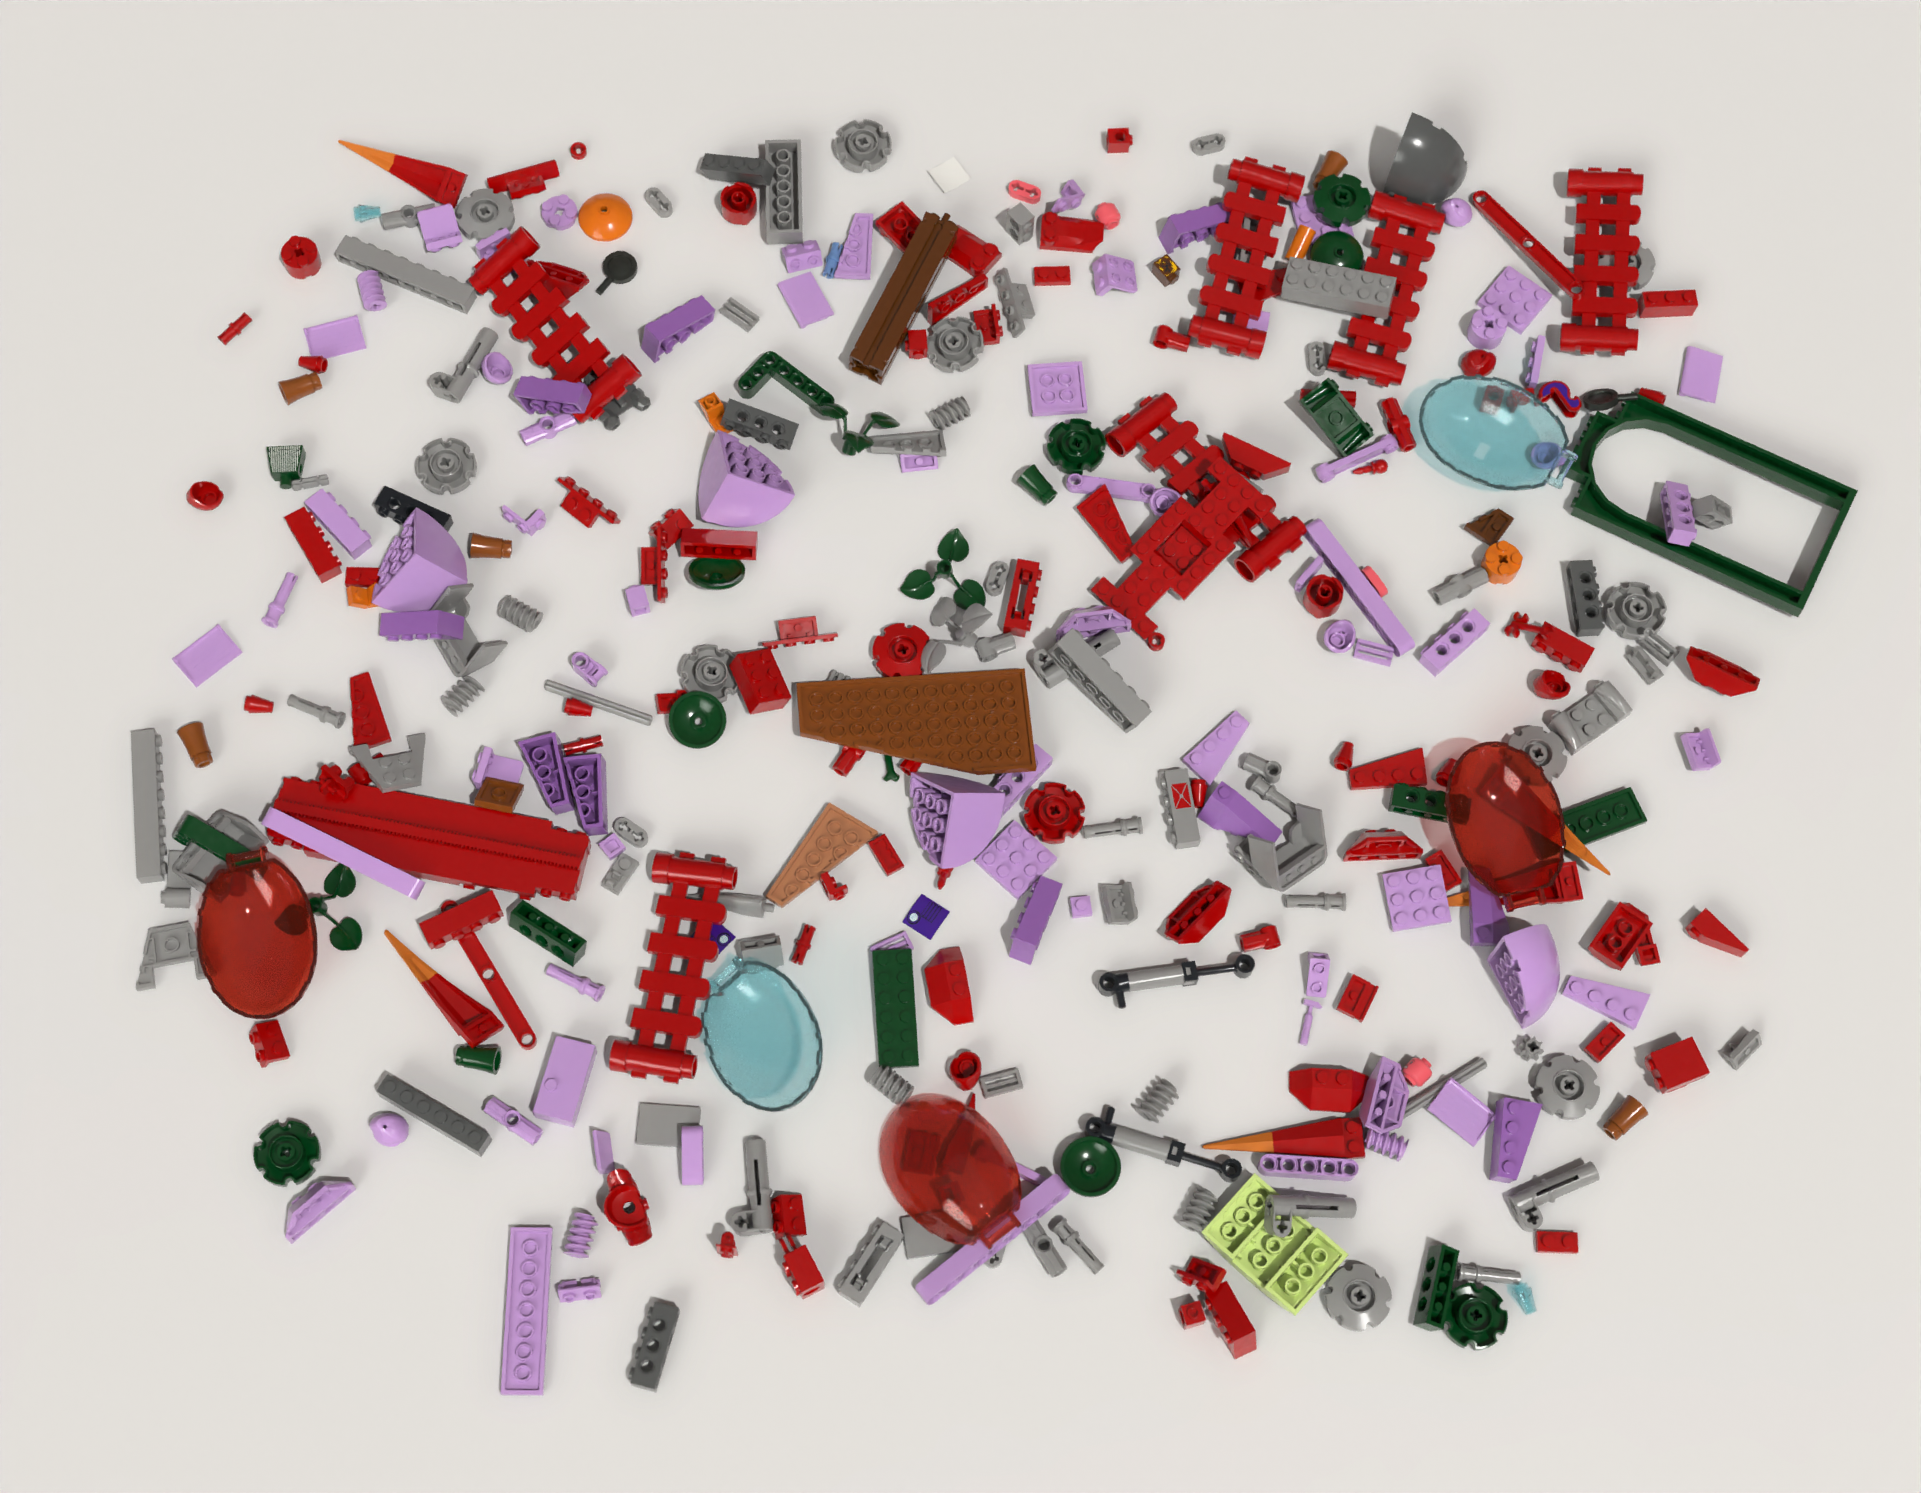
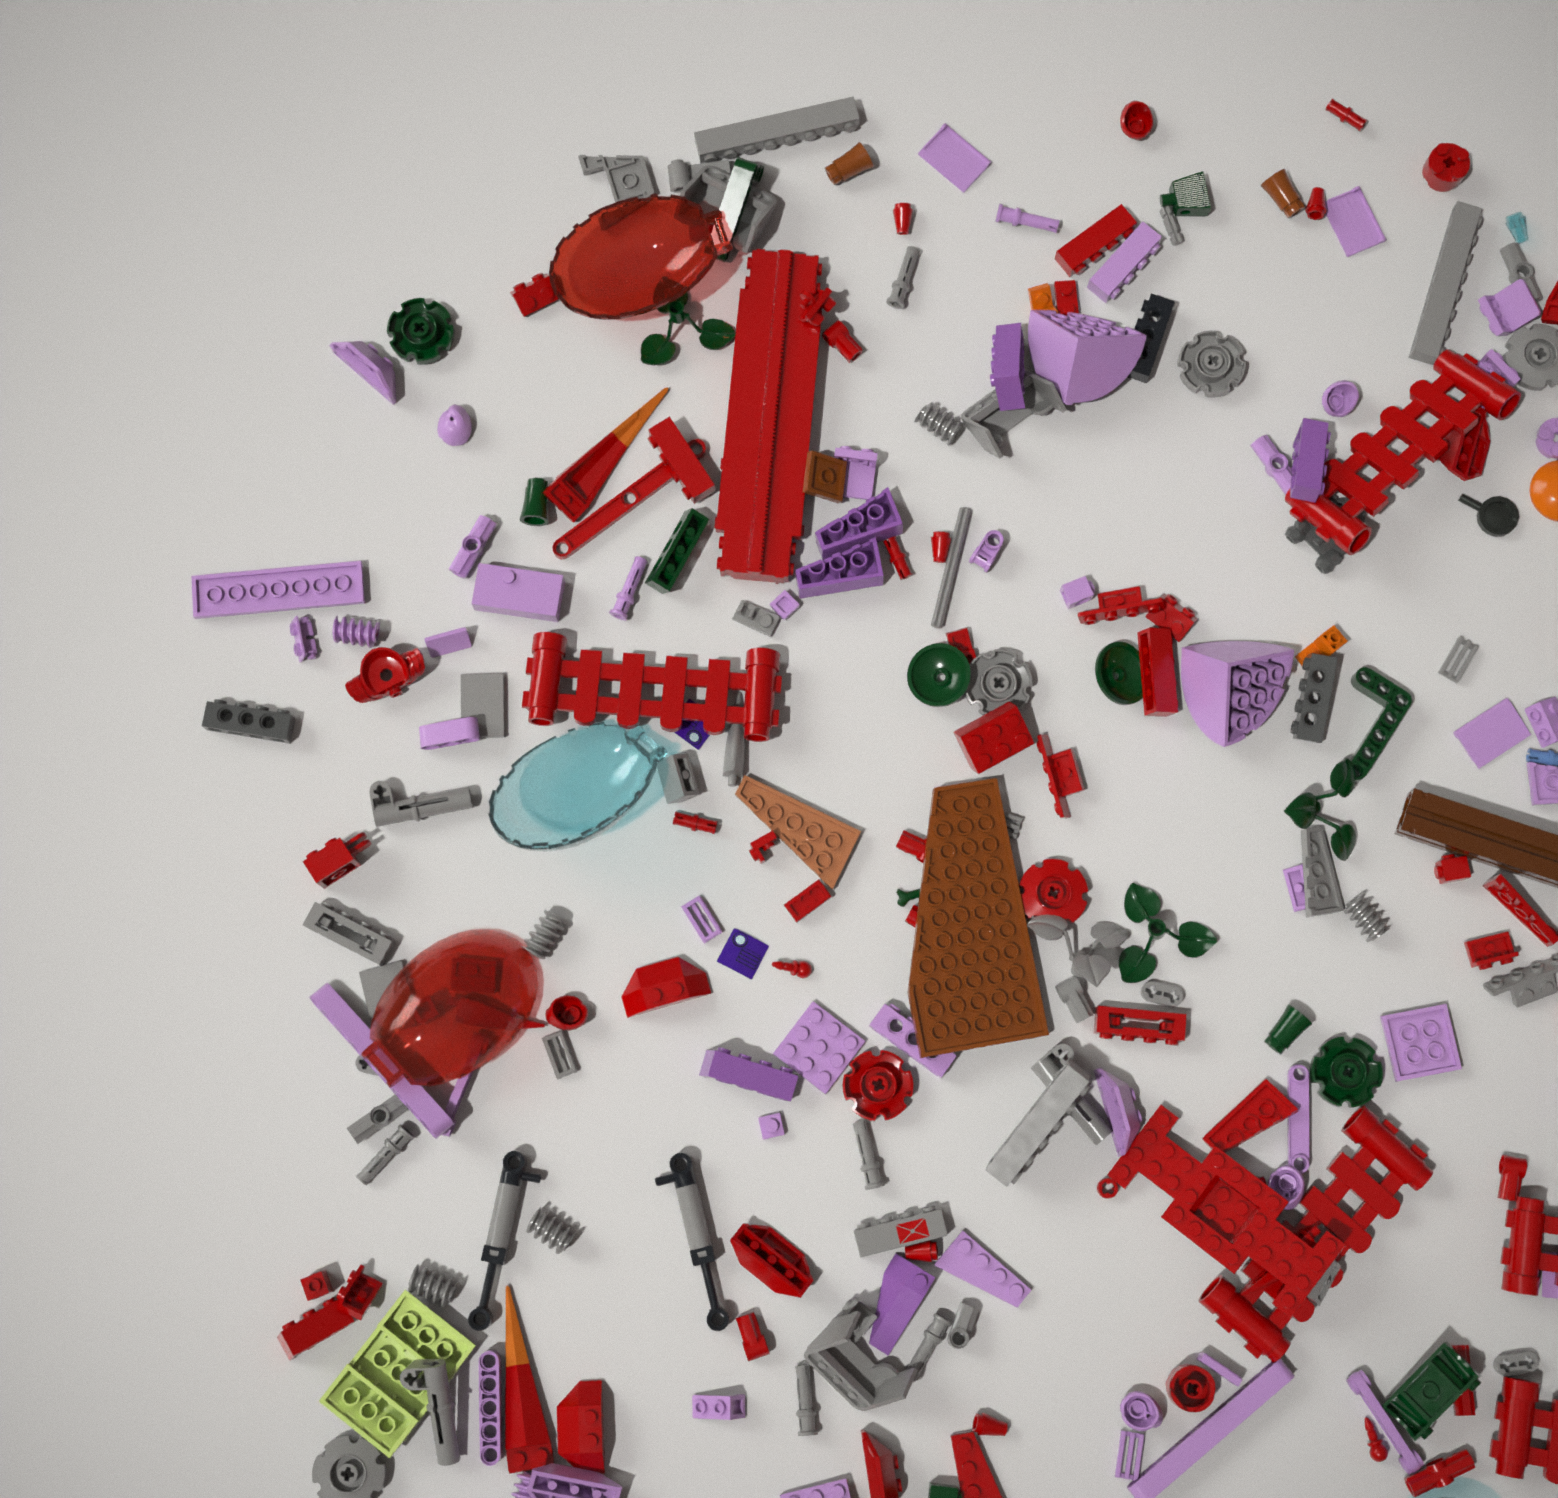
camera: 90 degrees right, 10 degrees up
(343, 853) = (737, 327): lavender beam -> none
(367, 715) = (902, 331): red wing -> none
(371, 290) = (1415, 247): lavender piece -> none
(394, 771) = (840, 367): light grey wing -> none
(434, 1115) = (471, 467): dark grey brick -> none
(467, 370) = (1335, 367): light grey piece -> none
(490, 547) = (1118, 424): dark orange plant -> none
(520, 615) = (1041, 468): light grey piece -> none
(534, 523) = (1155, 468): lavender bracket -> none
(583, 506) = (1186, 518): red bracket -> none
(633, 829) = (799, 620): light grey beam -> none
(676, 327) = (1428, 589): medium lavender wedge -> none
(727, 1247) = (353, 781): red hinge -> none
(788, 1216) = (394, 841): red bracket -> none
(895, 1008) = (631, 930): dark green plate -> none
(954, 816) = (856, 970): lavender brick -> none
(960, 356) = (1470, 902): light grey piece -> none
(1090, 1153) = (453, 1157): dark green dish -> none
(1119, 904) = (777, 1169): light grey bracket -> none
(1253, 459) = (1355, 1288): red wedge -> none
(1308, 1020) = (662, 1398): lavender piece -> none
(1357, 998) = (693, 1455): red plate -> none
(1375, 581) = (1220, 1450): coral beam -> none

